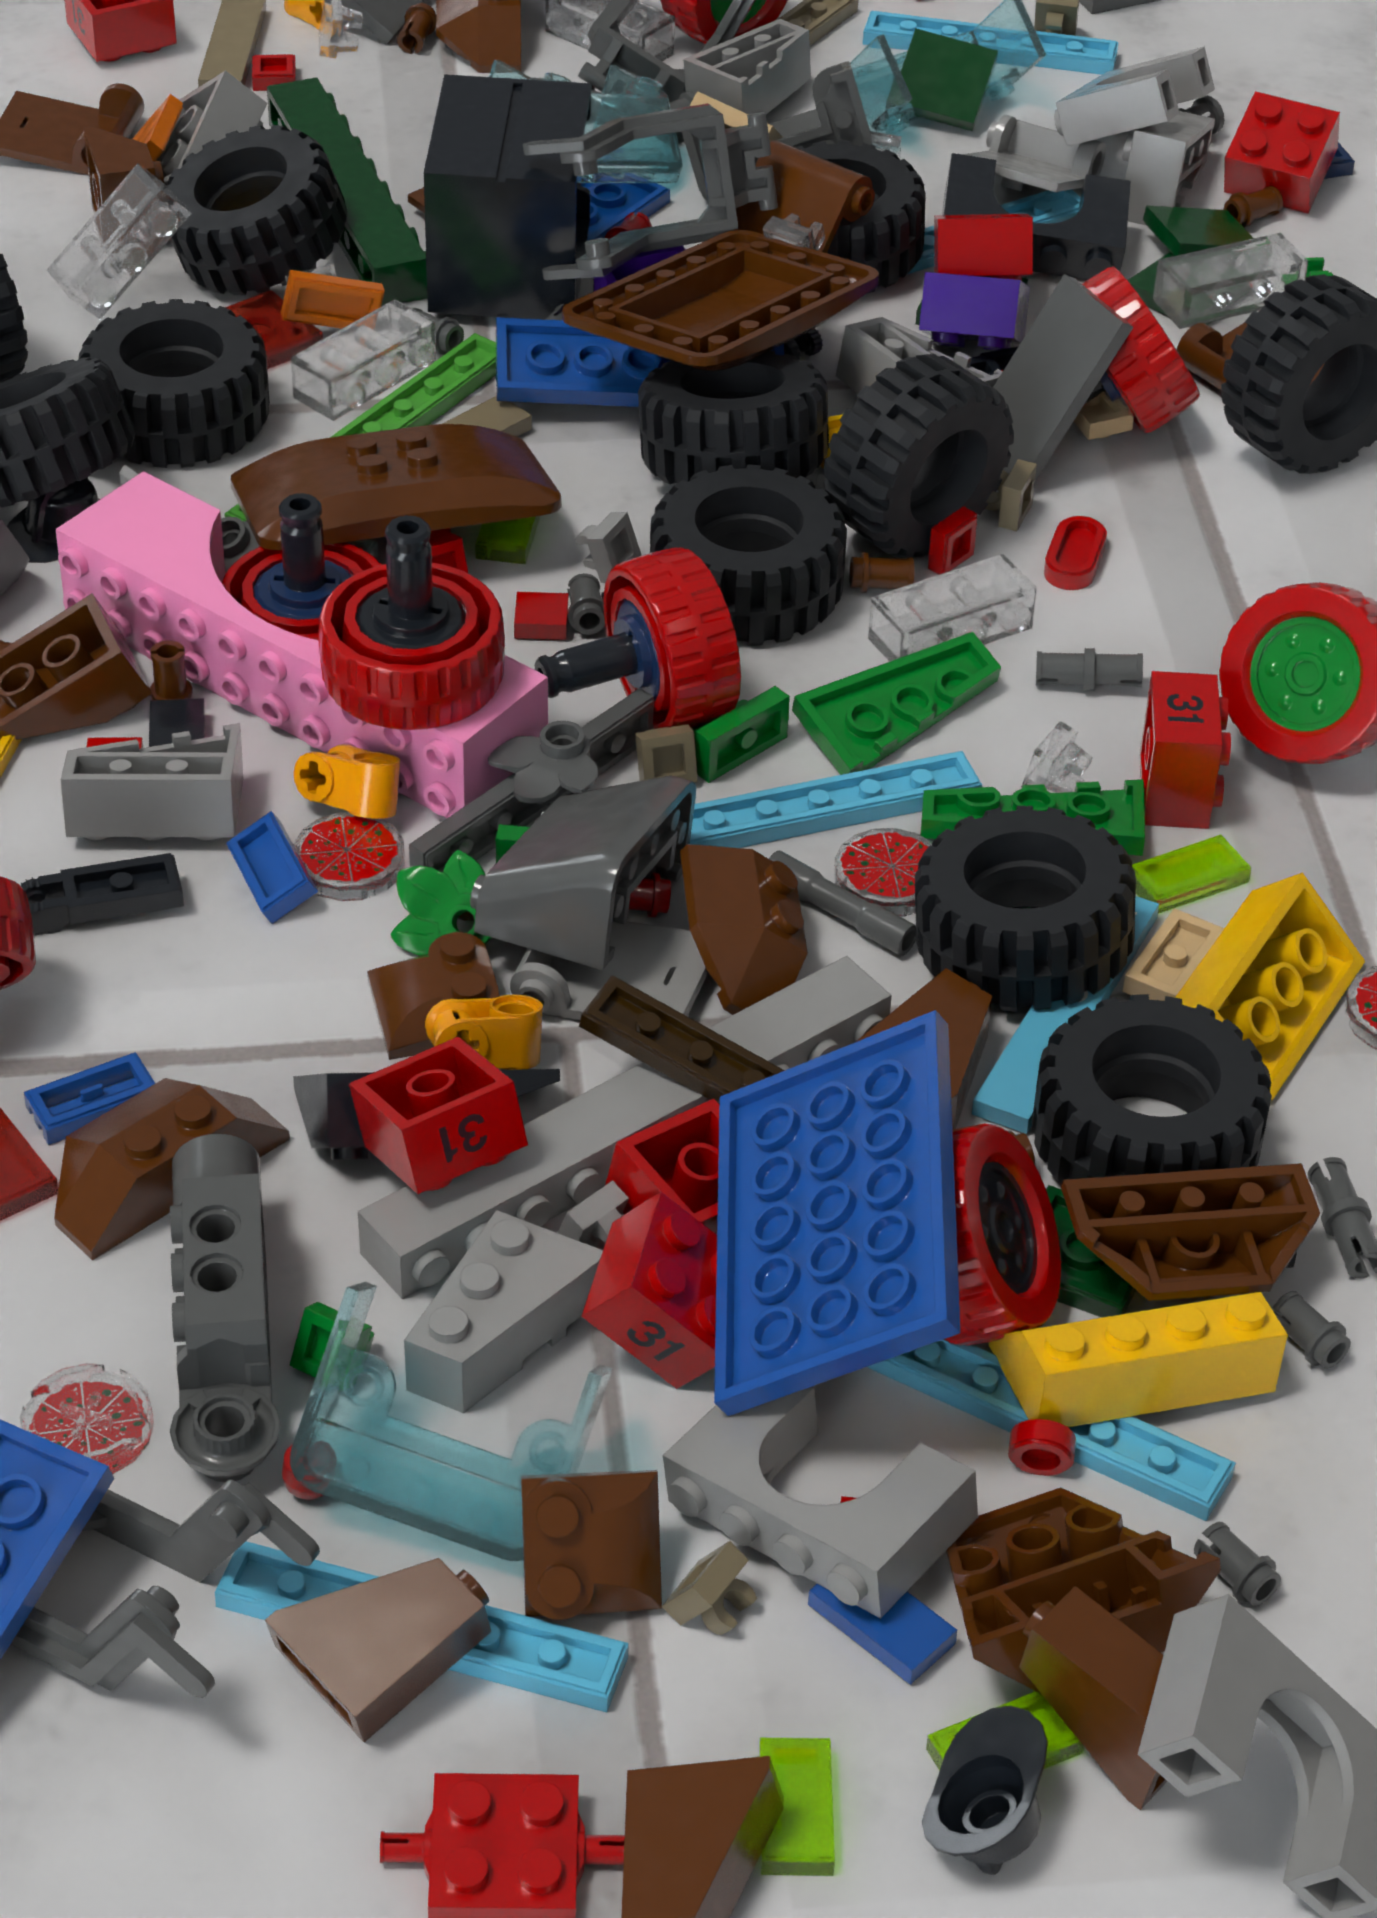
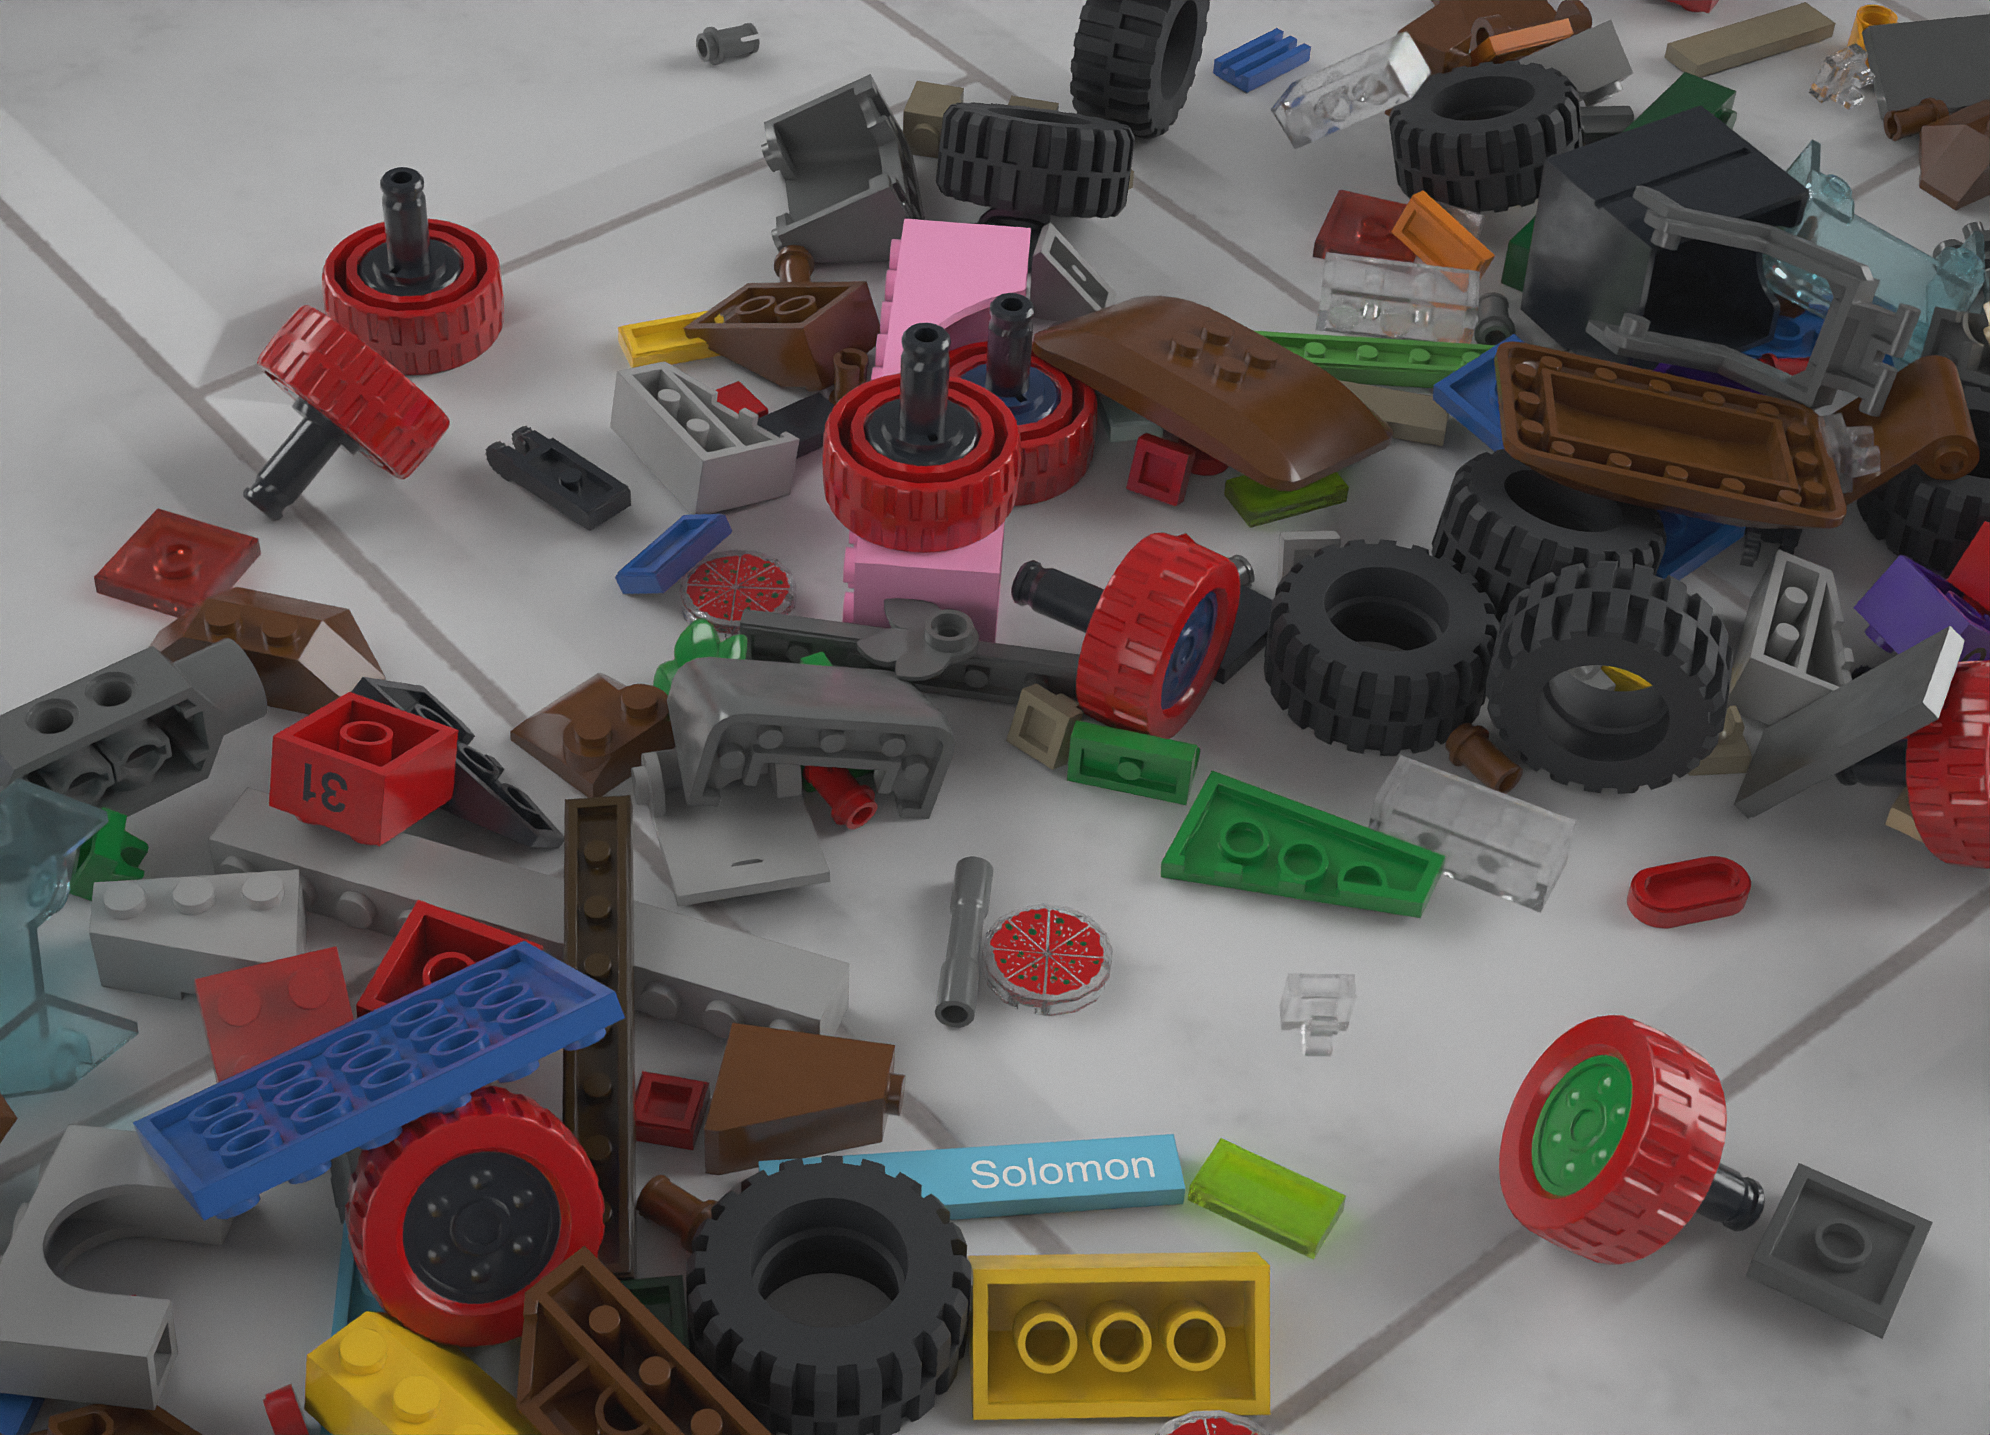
camera: 55 degrees right, 0 degrees up
(91, 1092) = (313, 587): blue tile -> none
(187, 379) = (1222, 211): black tyre -> none
(272, 70) = (1745, 77): red tile -> none
(350, 780) = (810, 547): light orange piece -> none
(498, 1028) = (548, 768): light orange piece -> none
(593, 1217) = (360, 952): light grey tile -> none
(744, 921) = (836, 861): reddish brown wedge -> none
(827, 802) = (1104, 870): medium azure tile -> none
(952, 541) = (1583, 785): red tile -> none
(1014, 495) = (1712, 800): dark tan tile -> none
(1031, 860) = (1031, 1128): black tyre -> none
(1089, 669) = (1501, 977): dark grey pin -> none
(1114, 810) = (1232, 1041): green wing -> none
(1171, 956) = (1105, 1226): tan plate -> none
(1183, 749) = (1408, 1091): red brick -> none

